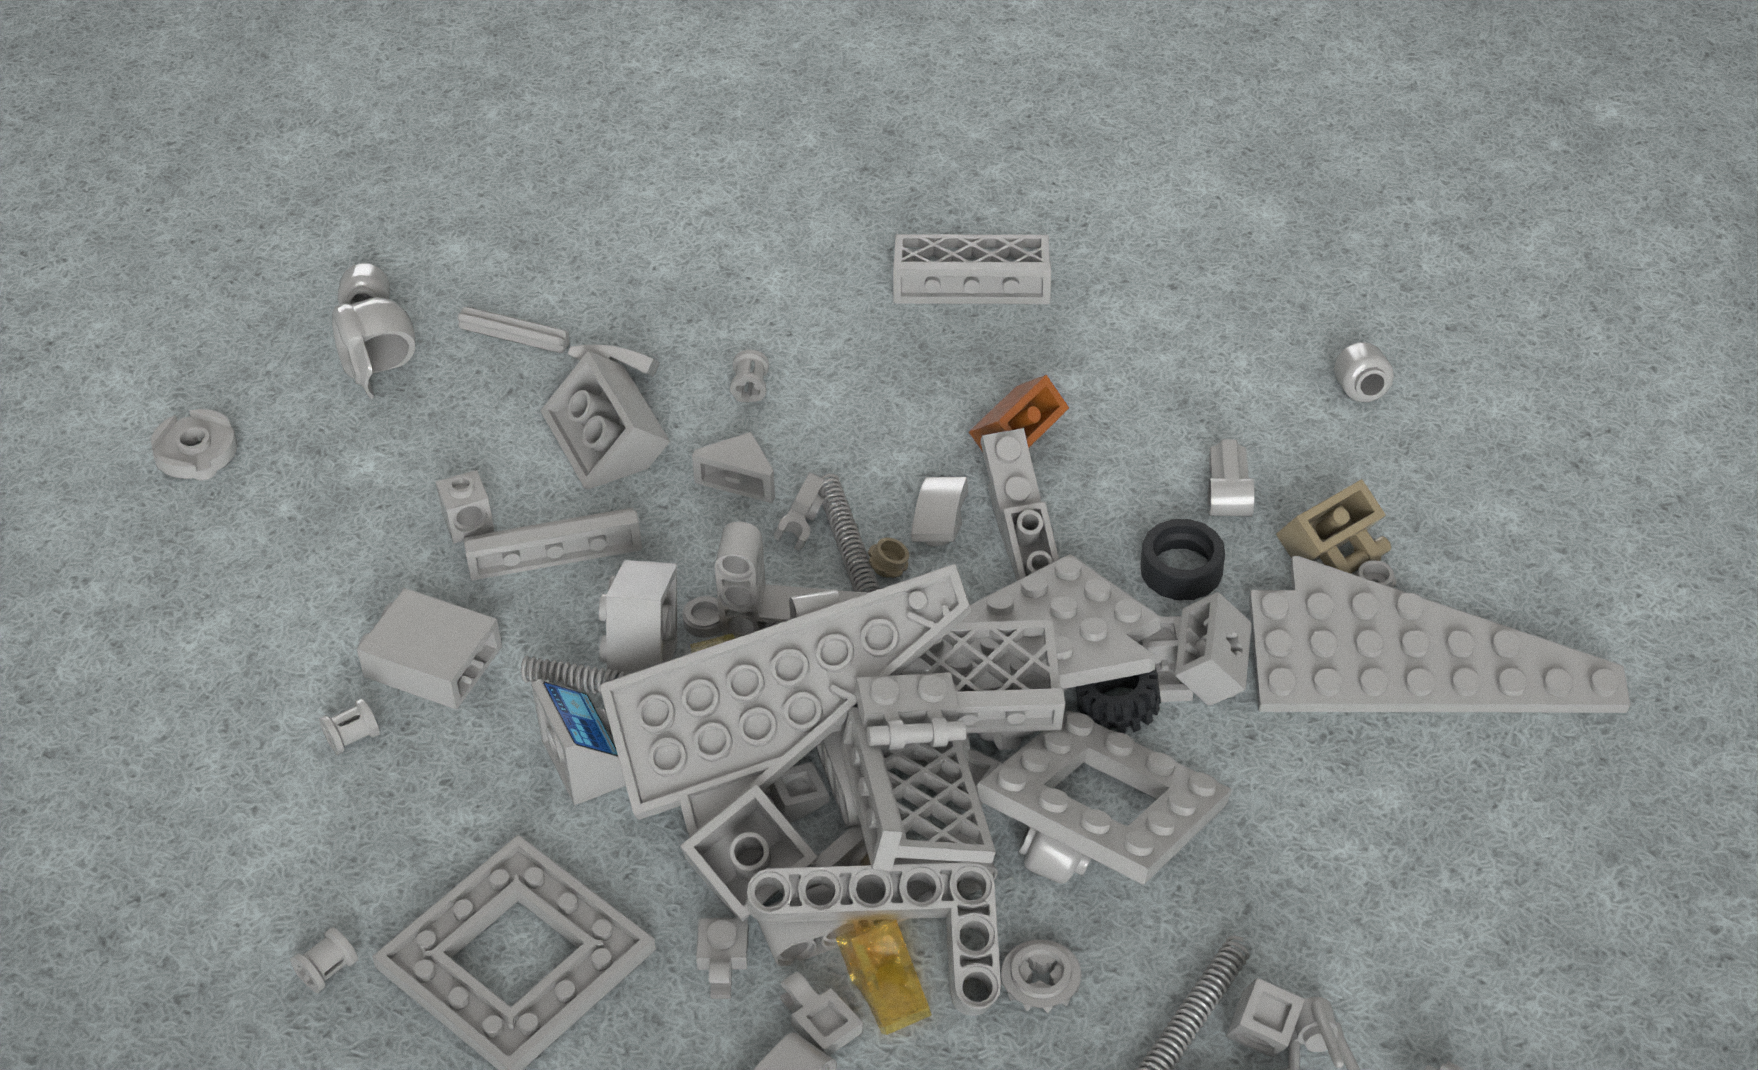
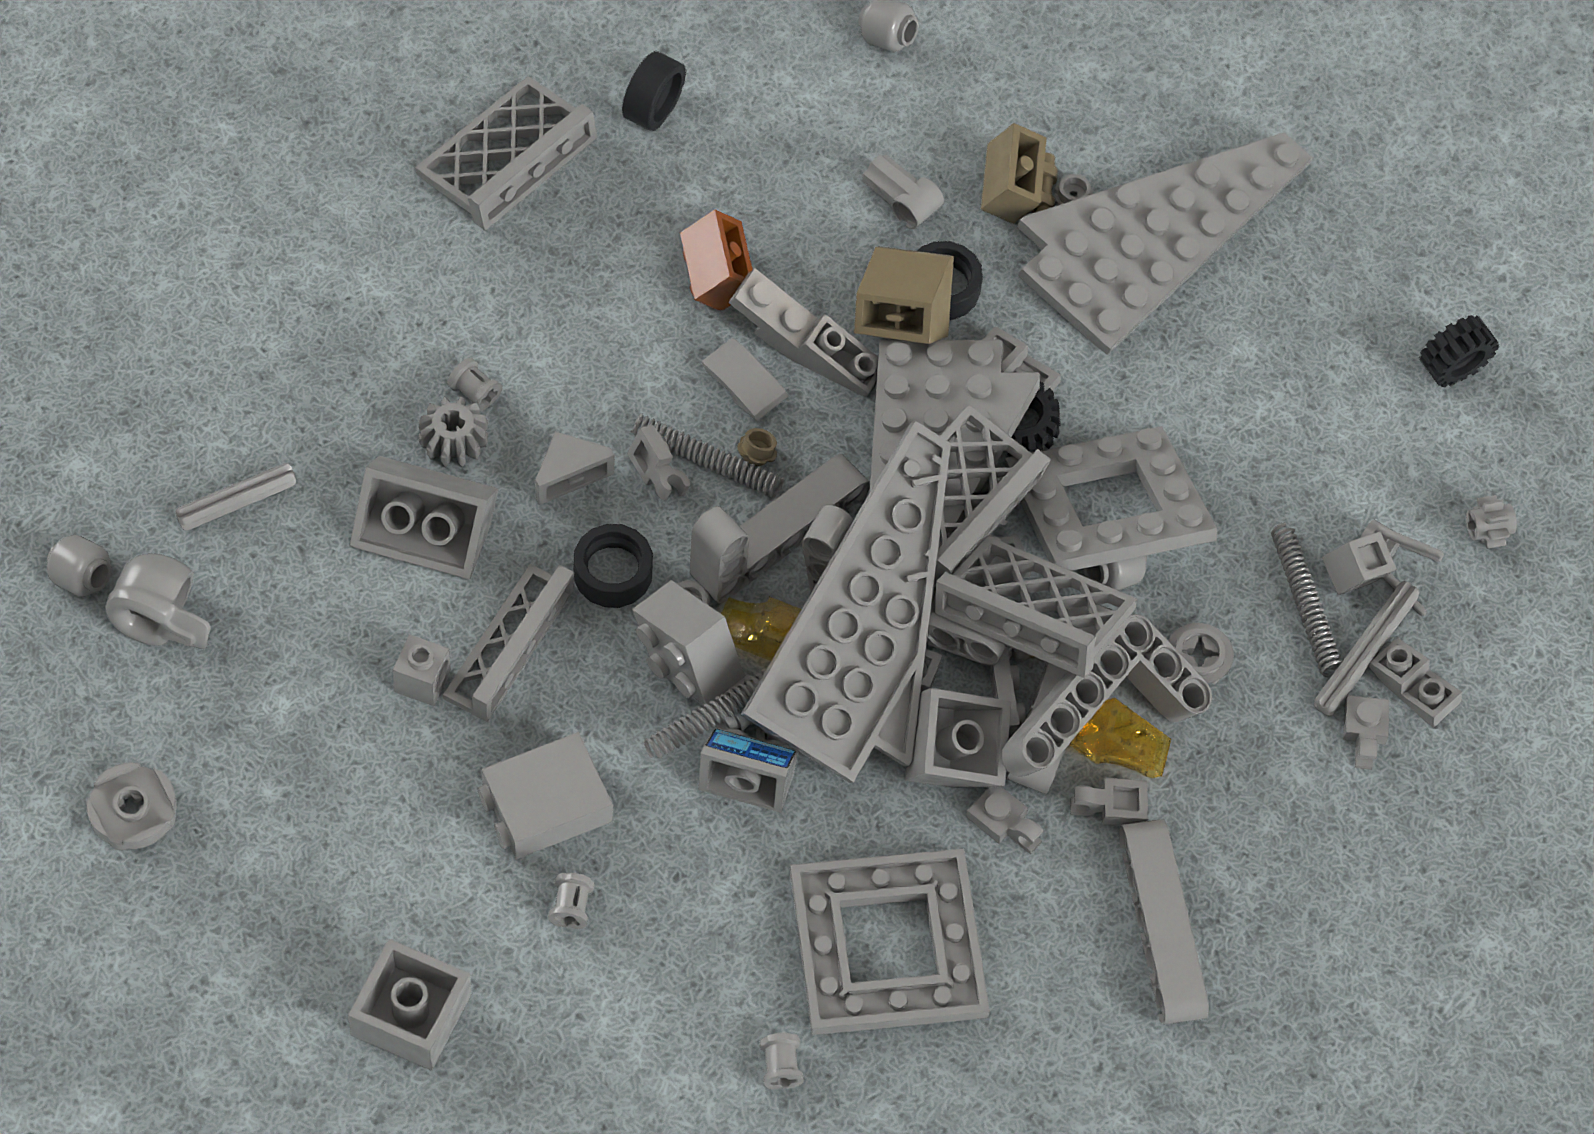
camera: 55 degrees left, 15 degrees up
(153, 690) = (410, 1004): none -> light grey brick
(634, 359) = (353, 458): light grey slope -> none
(683, 525) = (613, 594): none -> black tyre
(694, 390) = (441, 441): none -> light grey gear
(909, 710) = (972, 542): light grey plate -> none
(1109, 269) = (653, 90): none -> black tyre
(1119, 533) = (905, 296): none -> dark tan slope
(1213, 649) = (1049, 334): light grey brick -> none
(1579, 935) = (1459, 351): none -> black tyre

